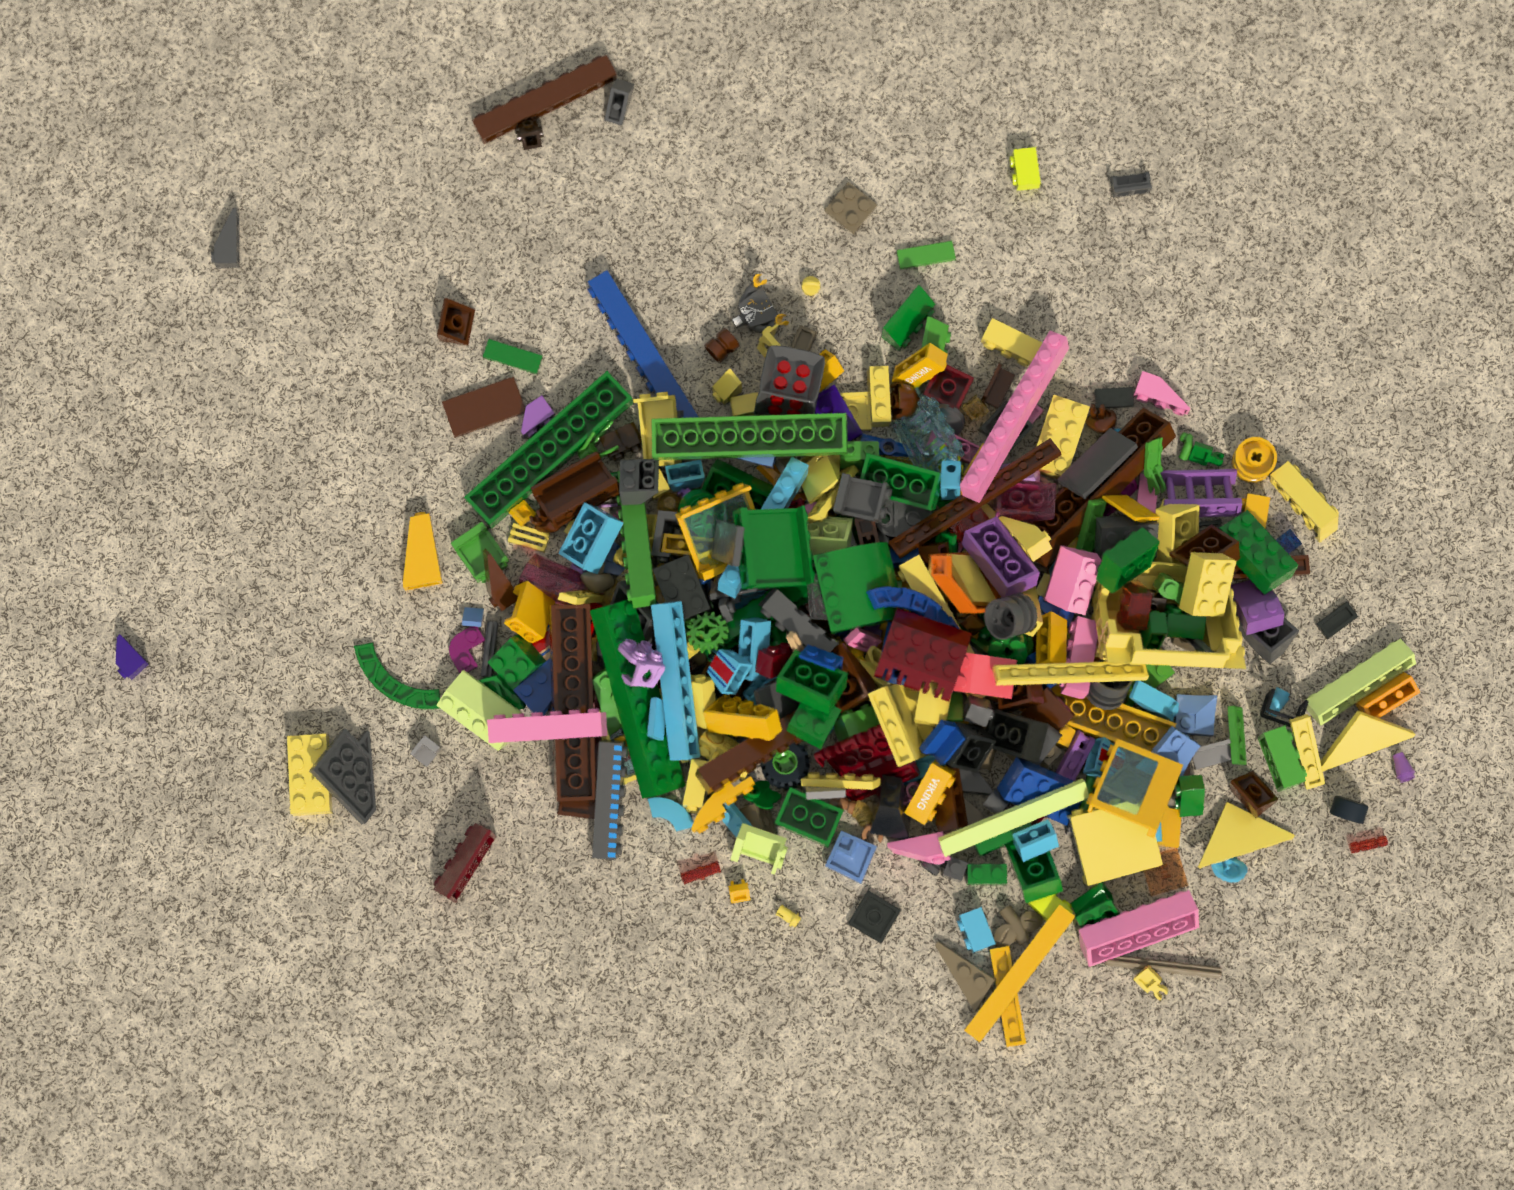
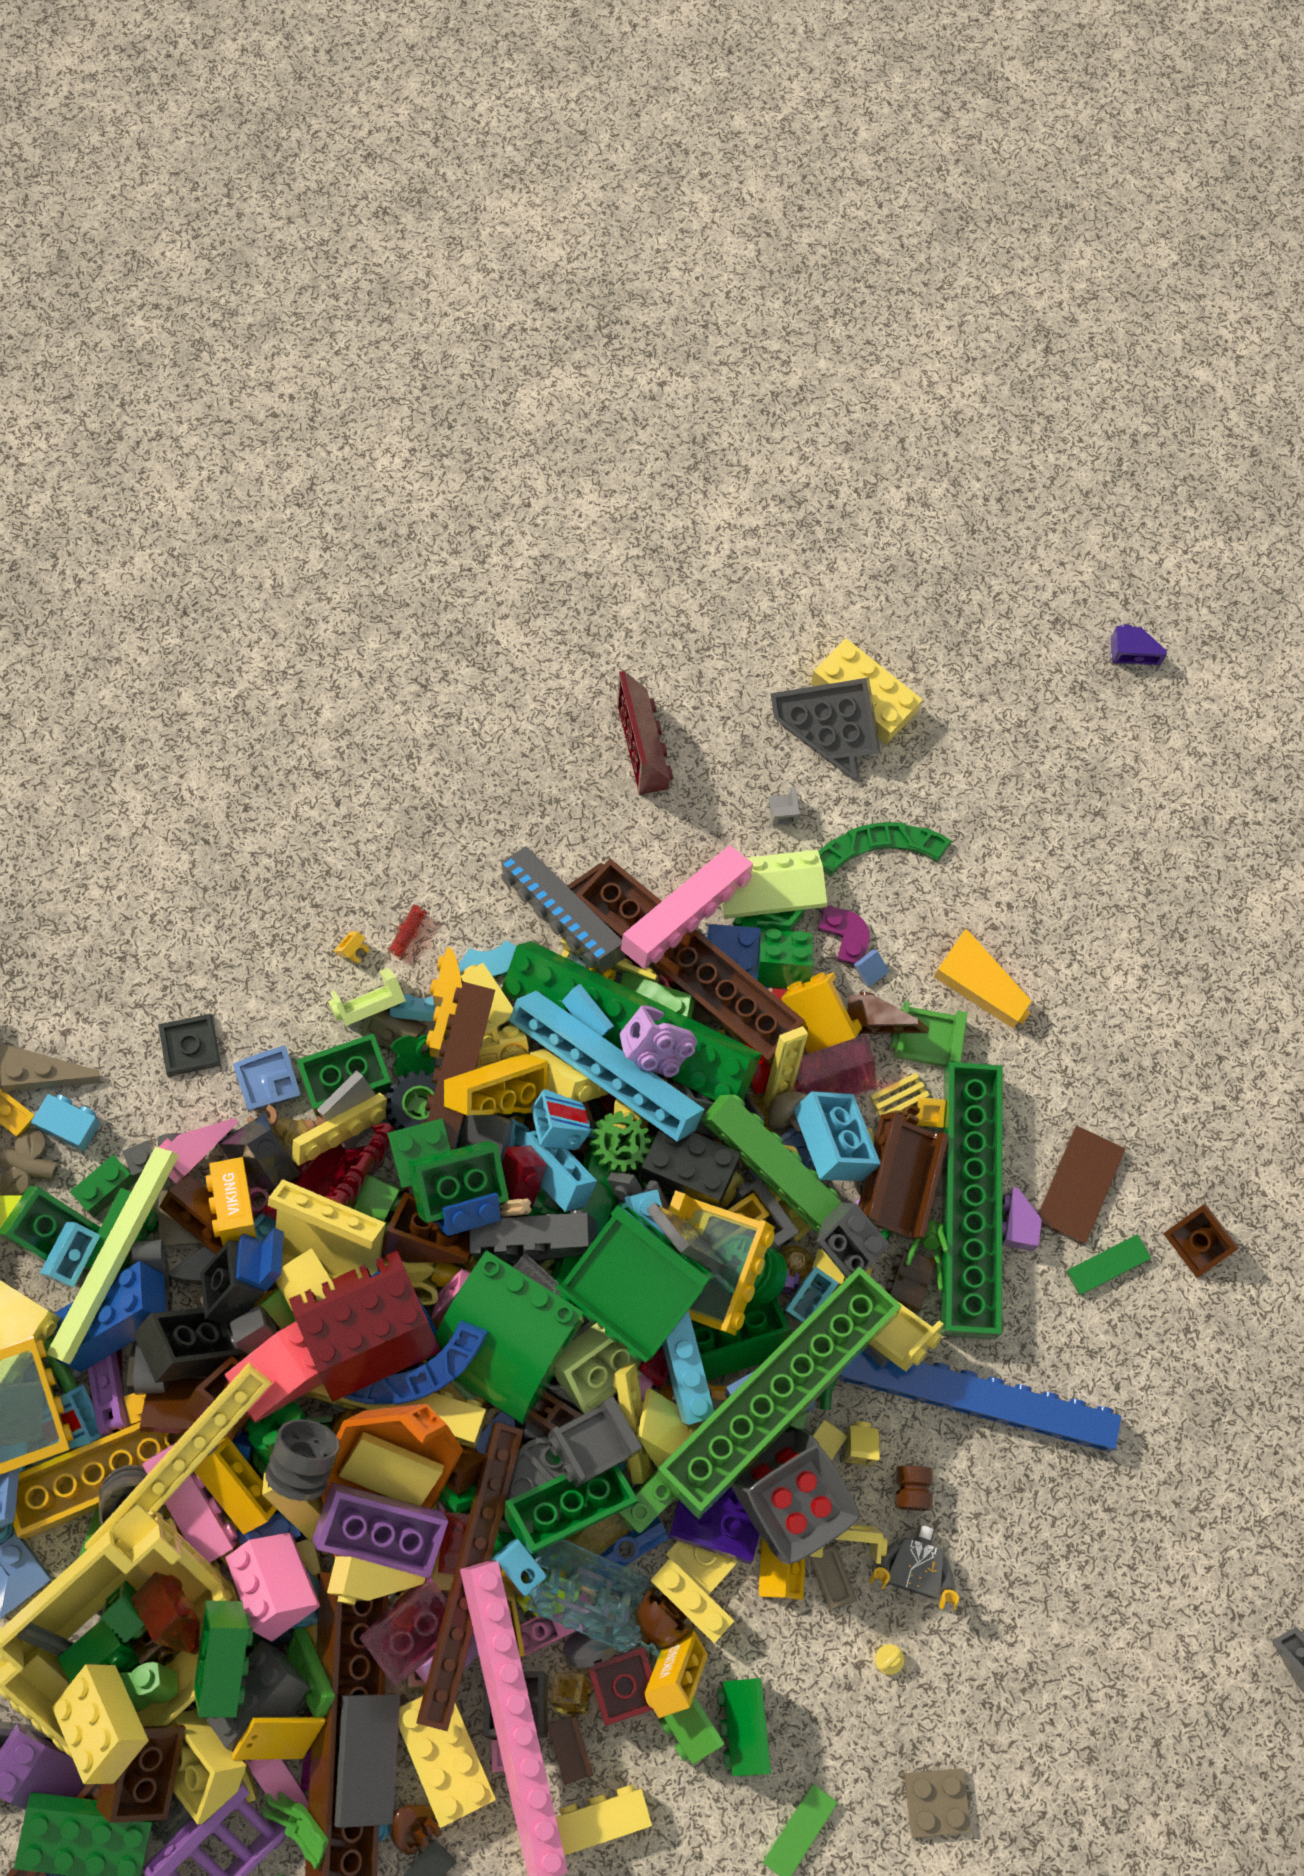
camera: 130 degrees right, 10 degrees down
(489, 648) = (826, 957): dark grey axle -> none
(789, 916) = (279, 968): light yellow pin -> none
(1154, 701) = (63, 1539): medium azure slope -> none

